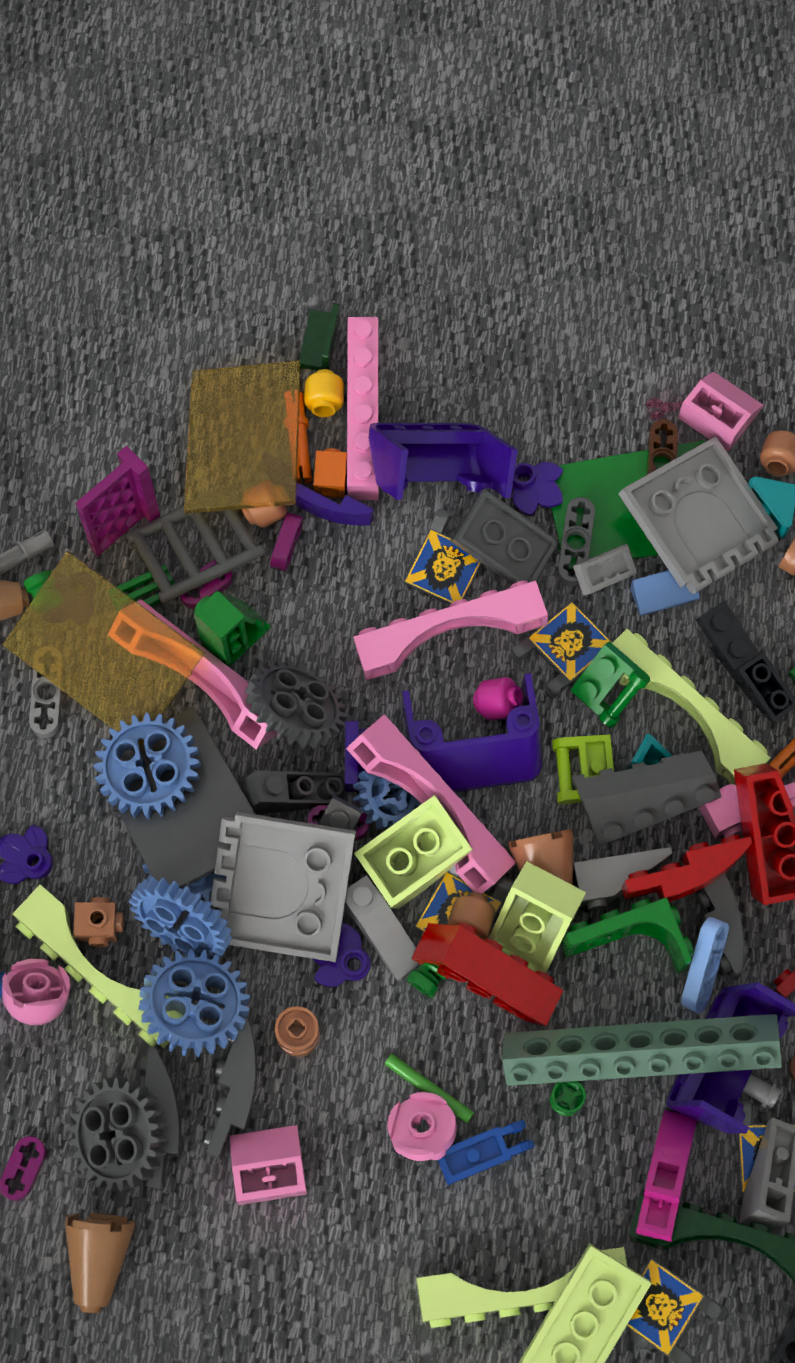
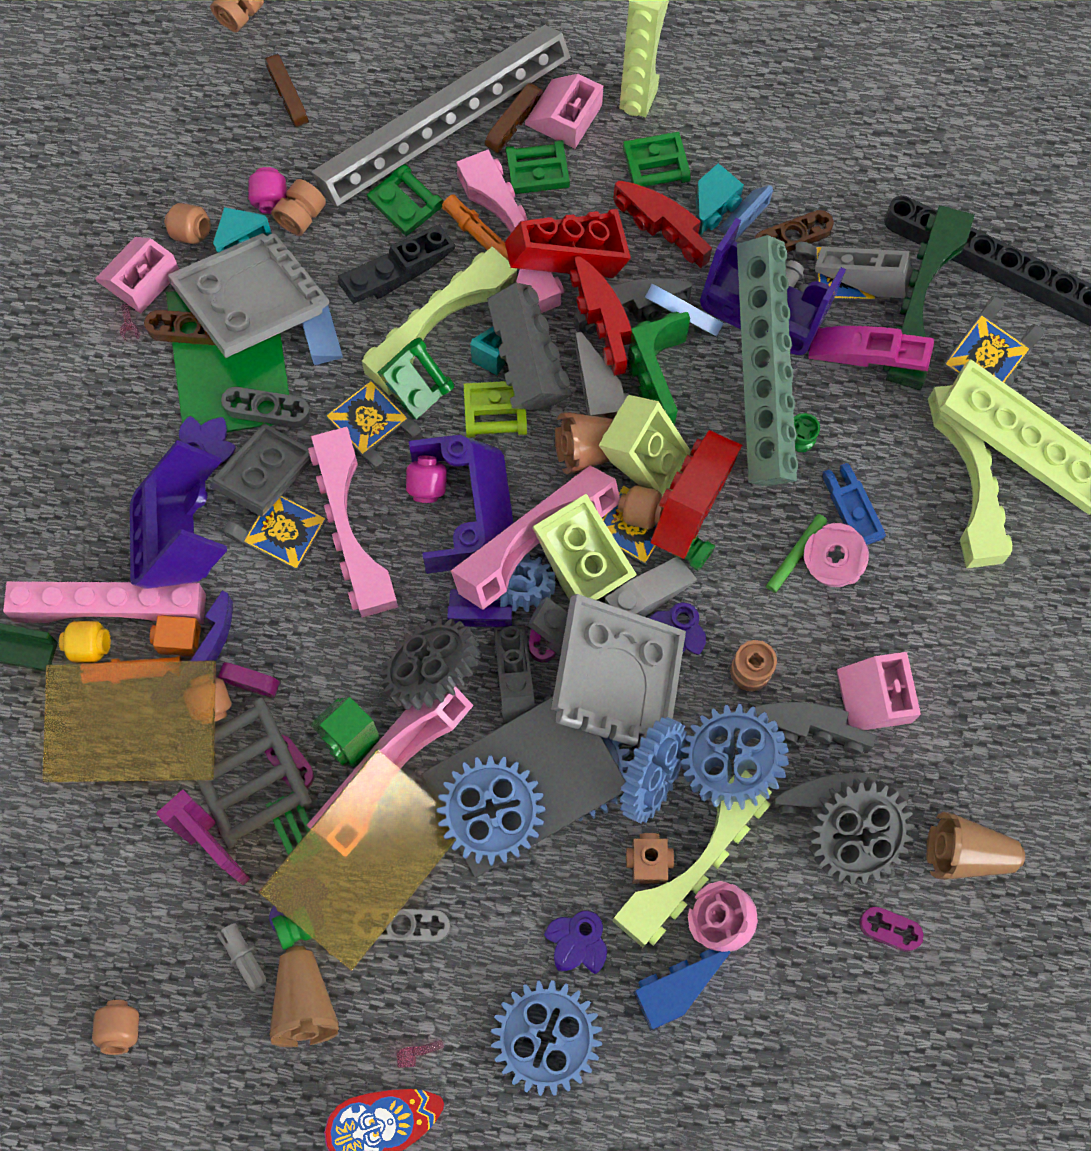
camera: 90 degrees left, 0 degrees up
(605, 569) = (298, 380): light grey plate -> none

